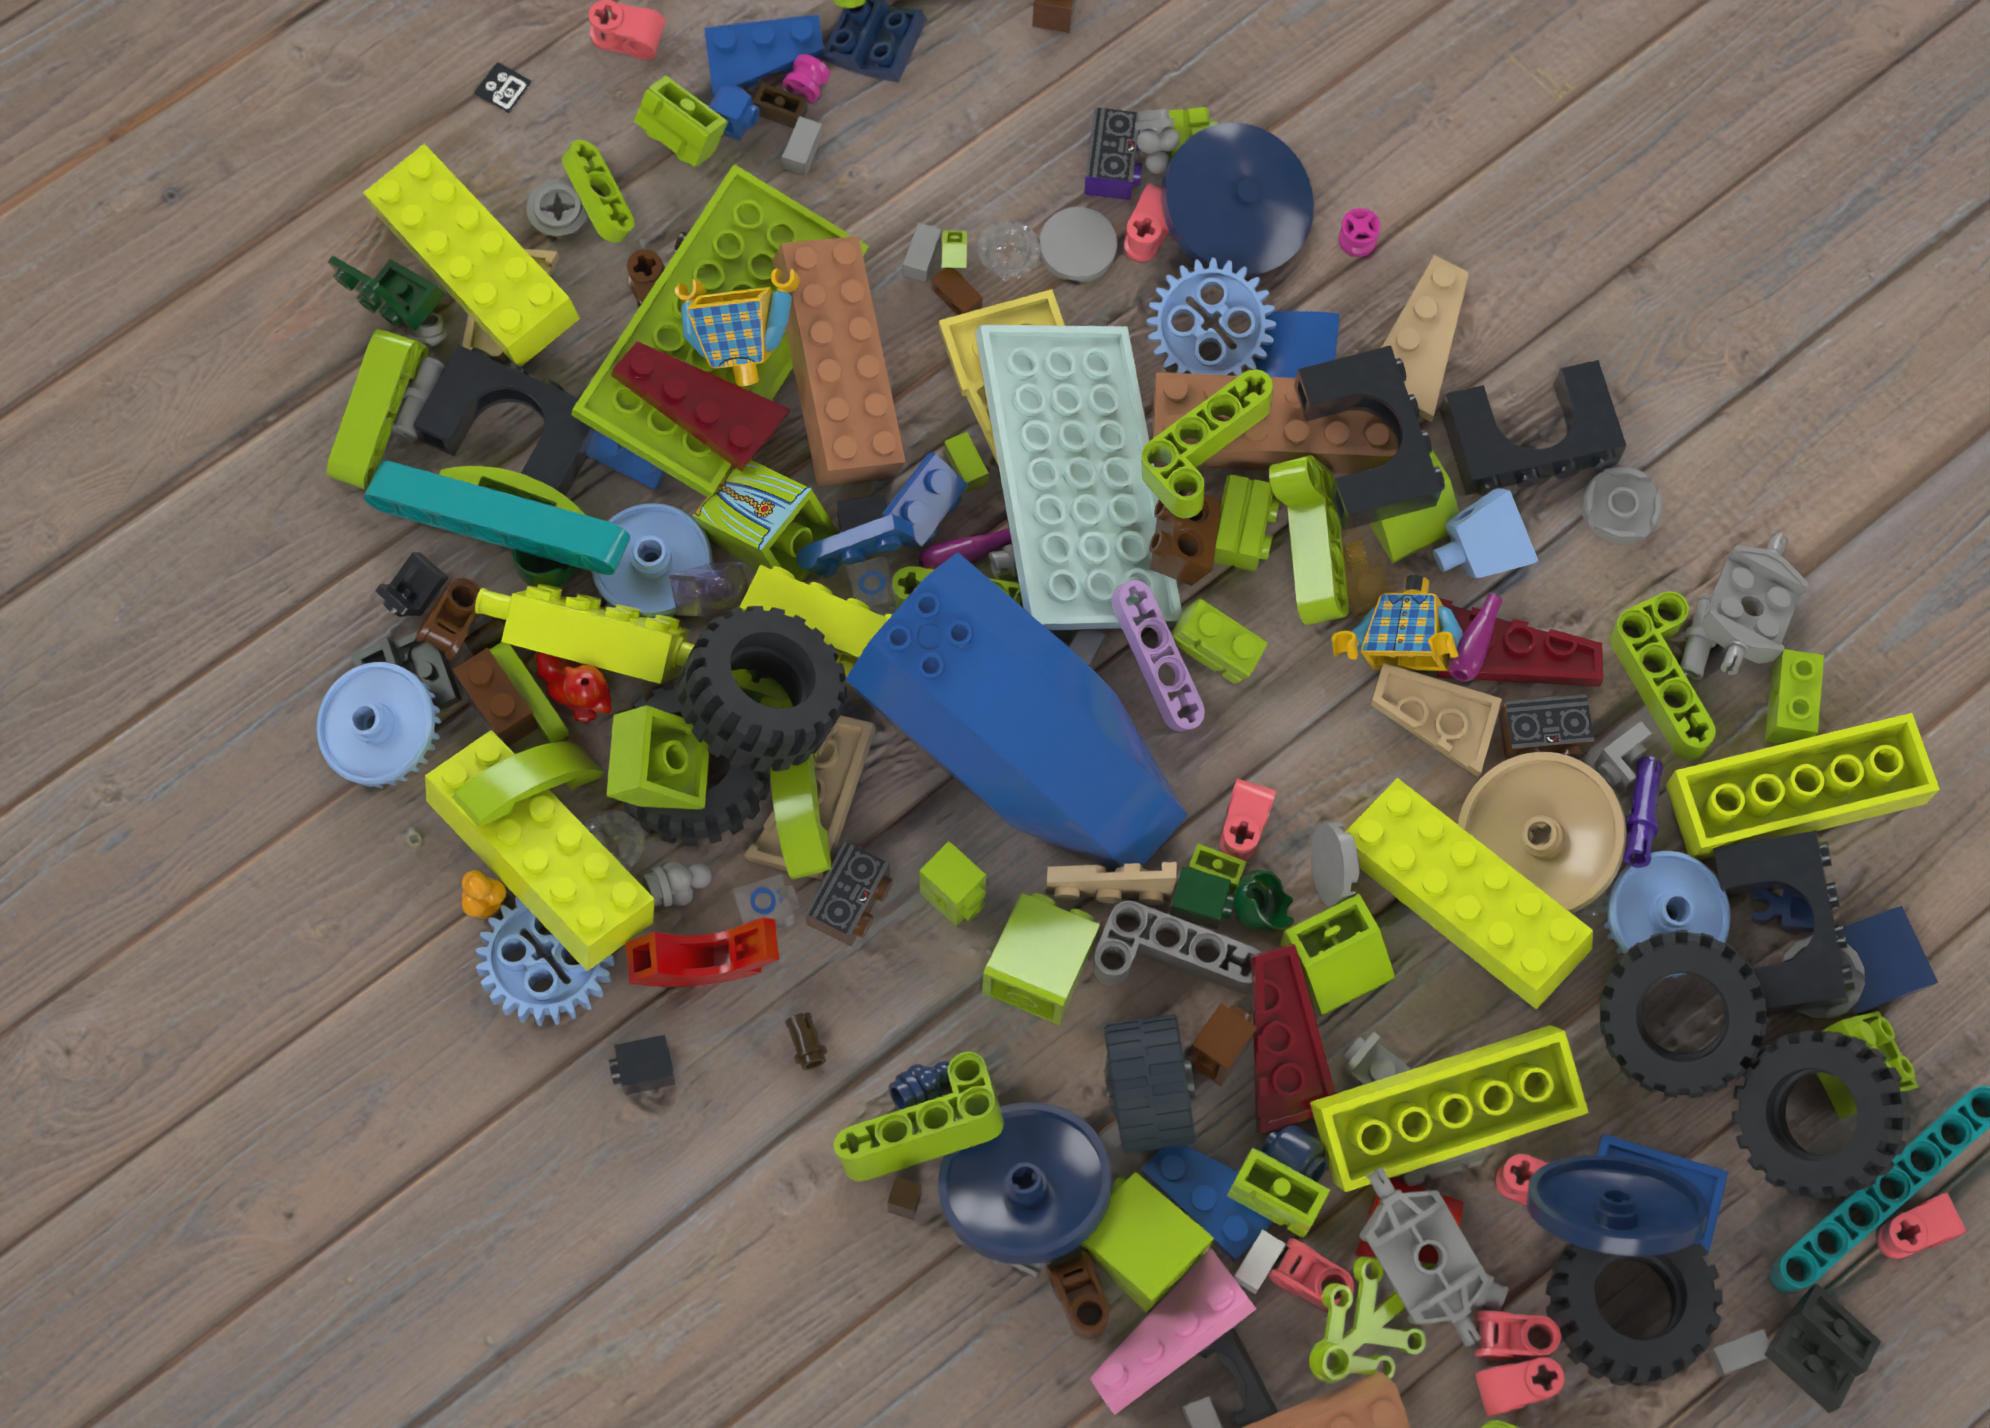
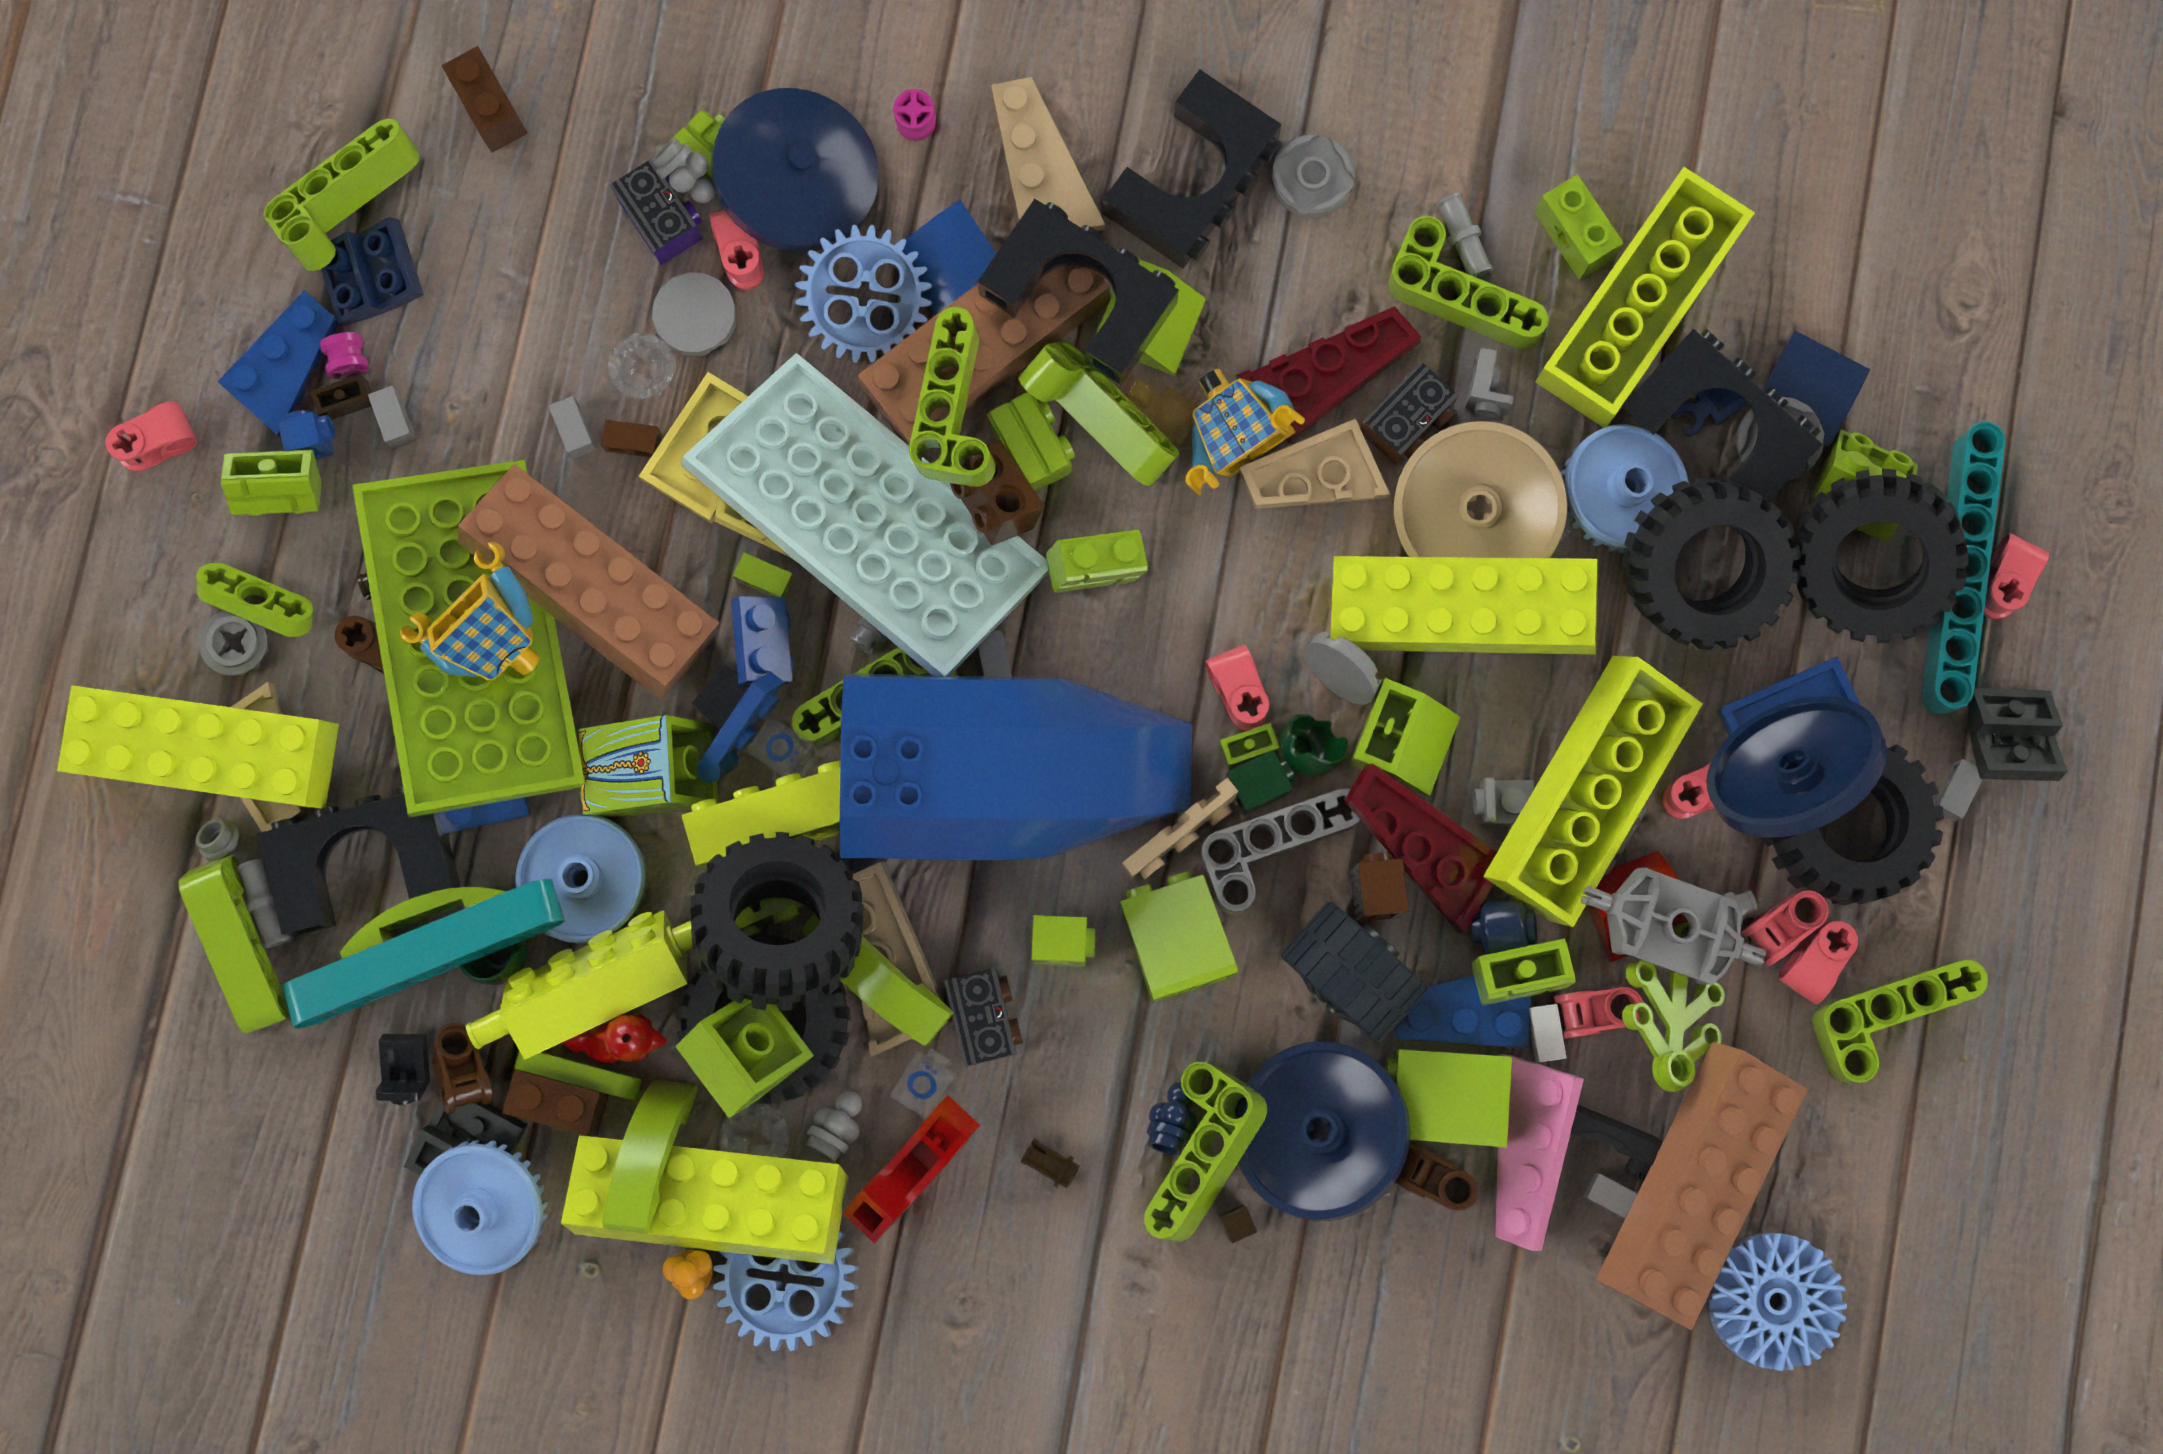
camera: 35 degrees left, 10 degrees up
(394, 291) = (158, 830): dark green bracket -> none
(503, 87) = (90, 573): black sticker -> none
(642, 1065) = (940, 1296): black brick -> none
(706, 406) = (517, 714): dark red wing -> none
(709, 588) = (652, 864): head -> none
(954, 249) = (598, 404): lime piece -> none
(970, 548) = (822, 663): magenta piece -> none
(1164, 653) = (1062, 606): lavender beam -> none
(1475, 641) = (1299, 388): magenta piece -> none
(1487, 538) = (1235, 294): light blue torso -> none
(1642, 822) = (1549, 430): dark purple pin -> none
(1765, 584) = (1486, 150): light grey plate -> none

